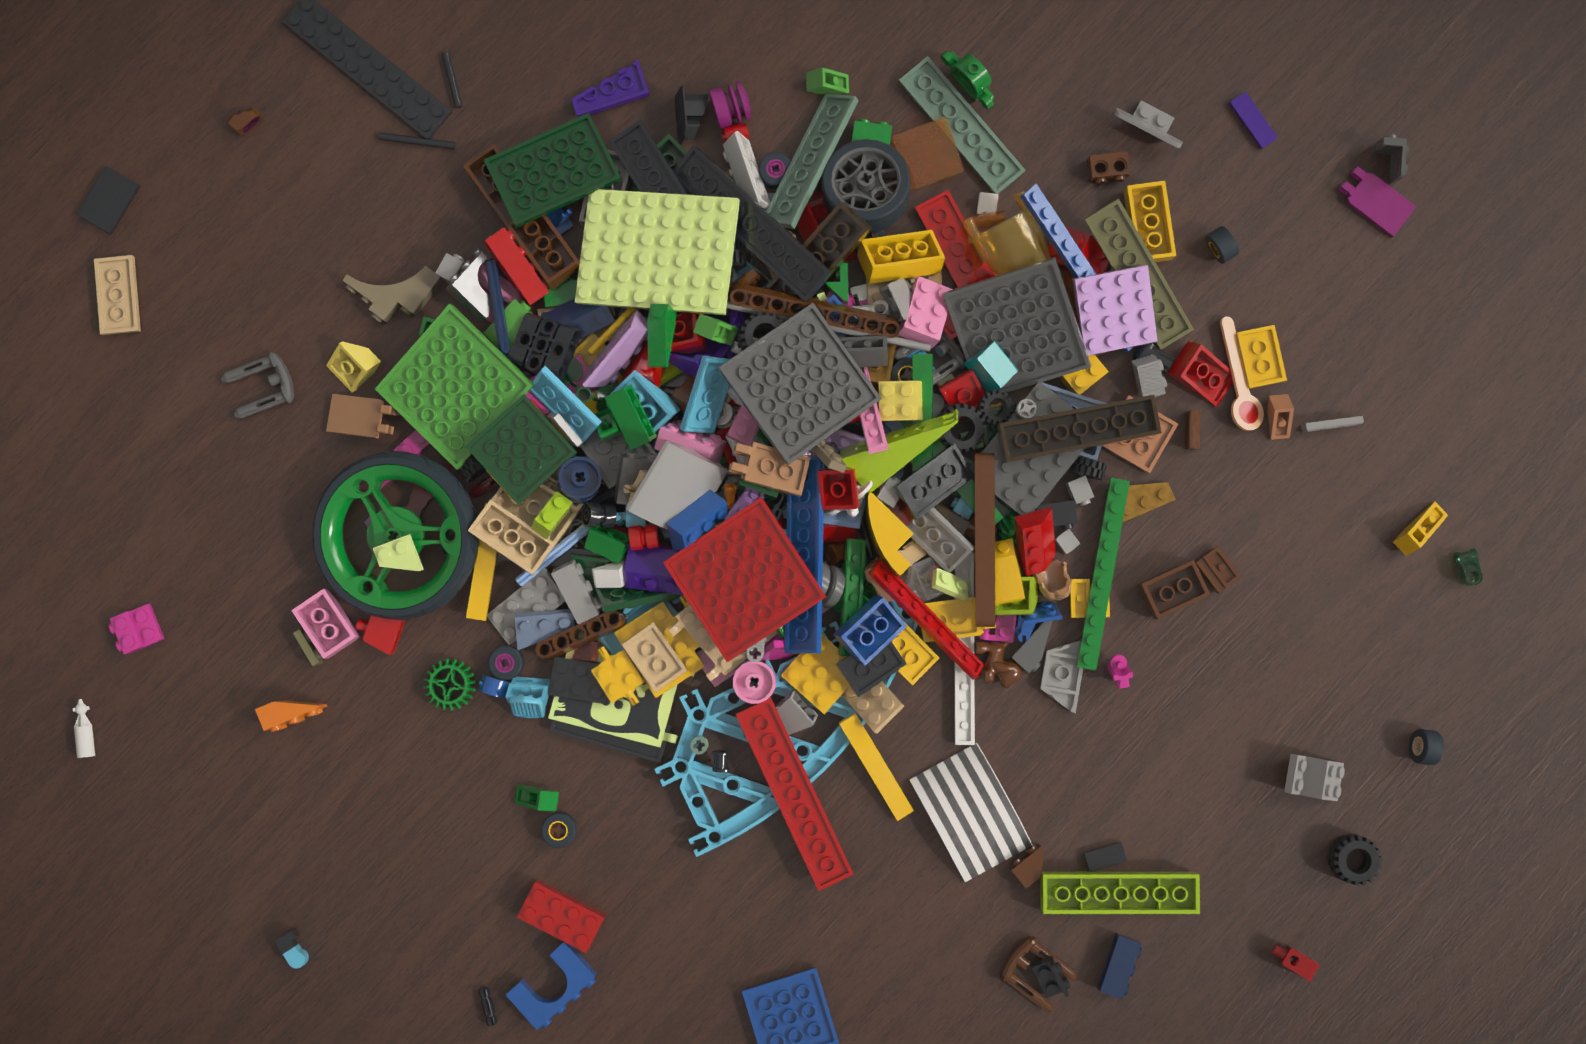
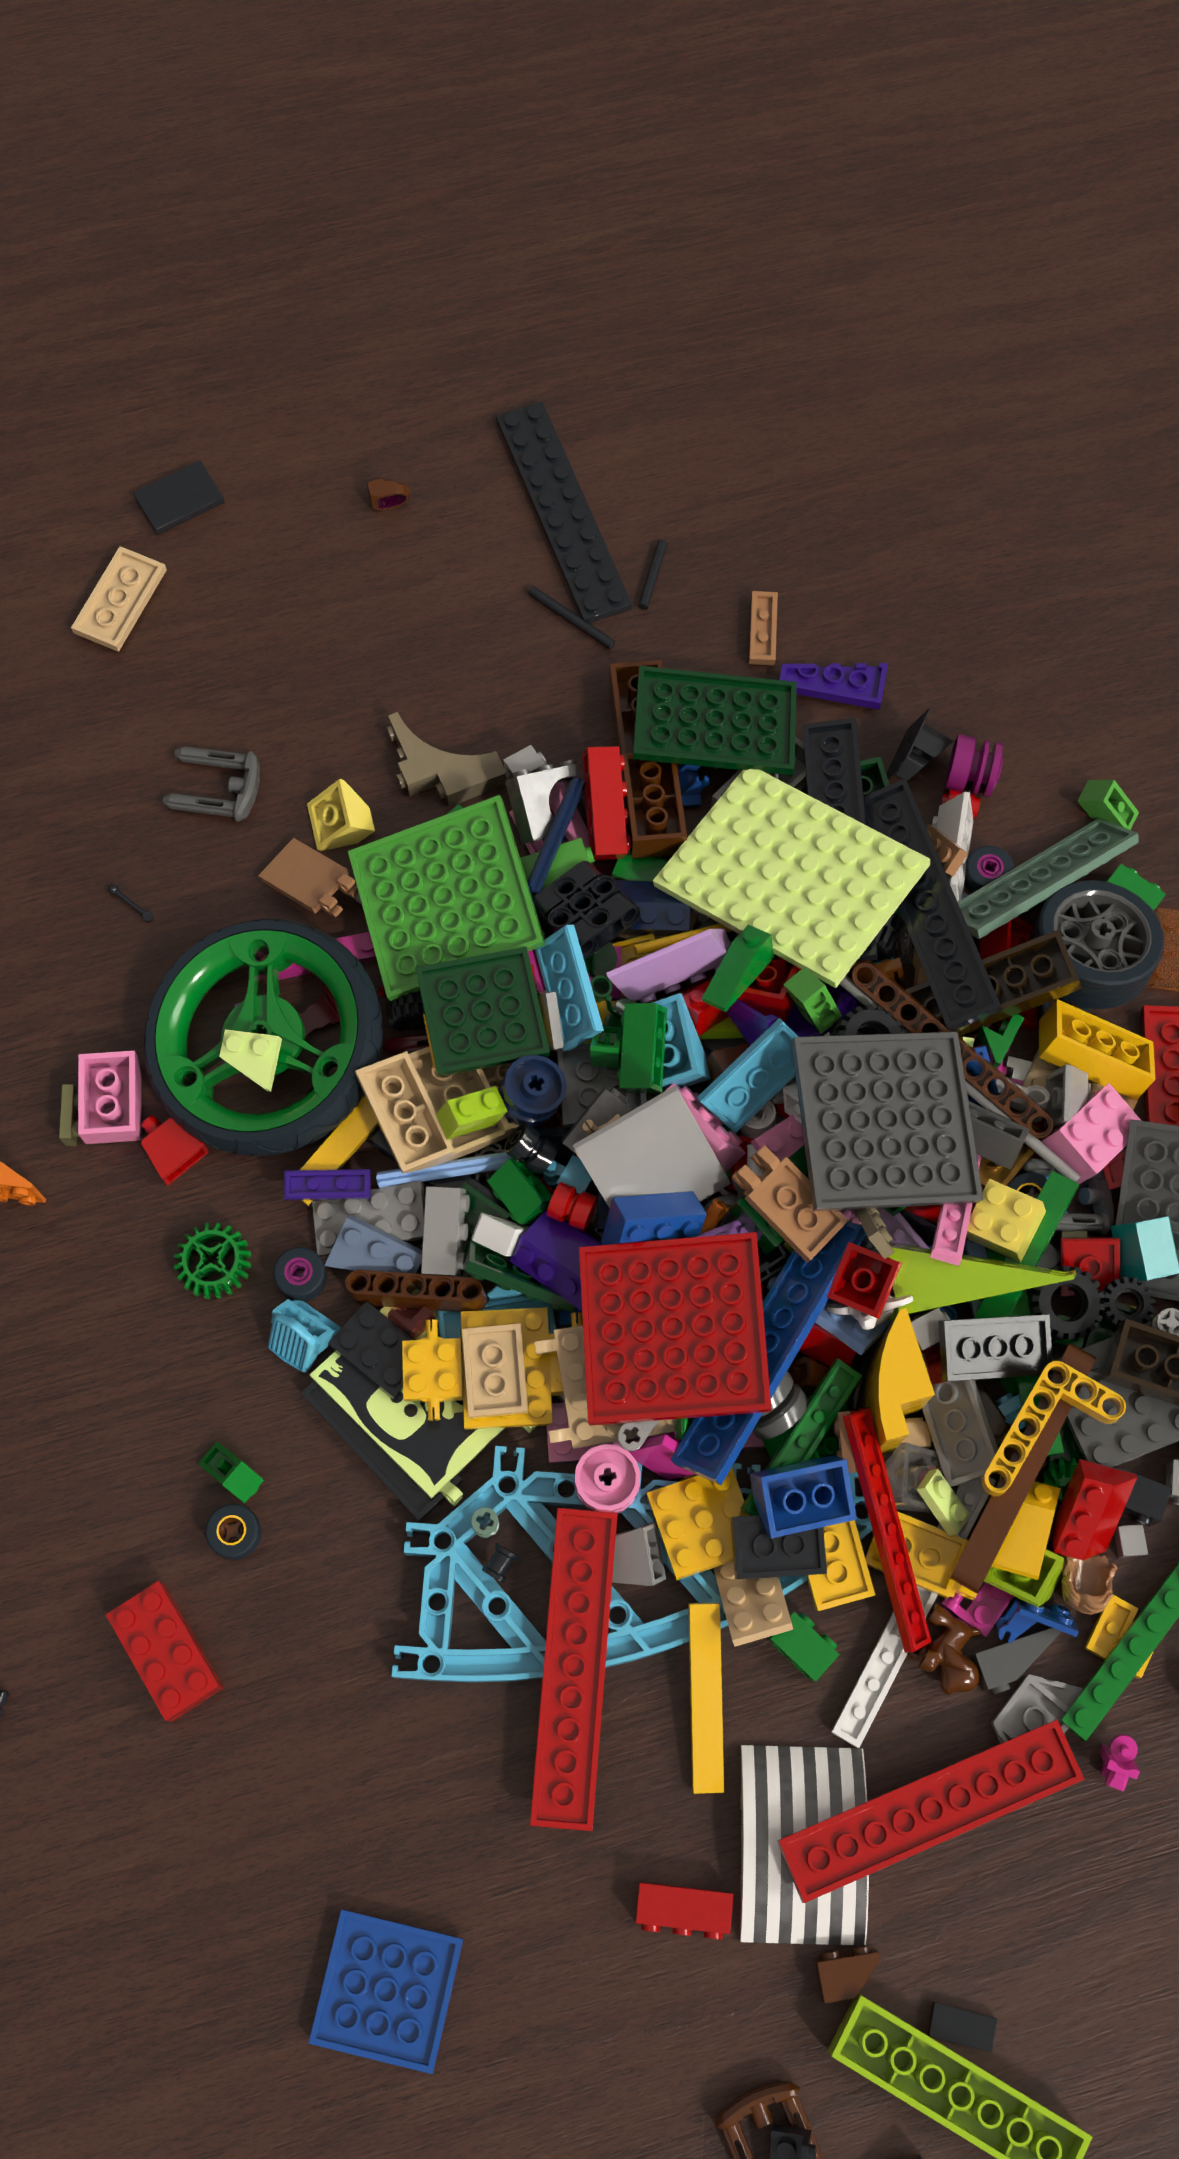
camera: 30 degrees right, 15 degrees down
(273, 495) = (147, 915): none -> black hinge
(490, 603) = (327, 1184): none -> dark purple tile
(493, 686) = (265, 1292): blue piece -> none
(540, 1010) = (55, 1766): blue arch -> none
(544, 79) = (763, 628): none -> medium nougat plate
(744, 179) = (948, 851): none -> medium nougat plate
(917, 707) = (805, 1647): none -> green brick
(925, 884) = (684, 1909): none -> red brick
(980, 510) = (1038, 1417): none -> yellow beam
(1030, 757) = (929, 1811): none -> red plate

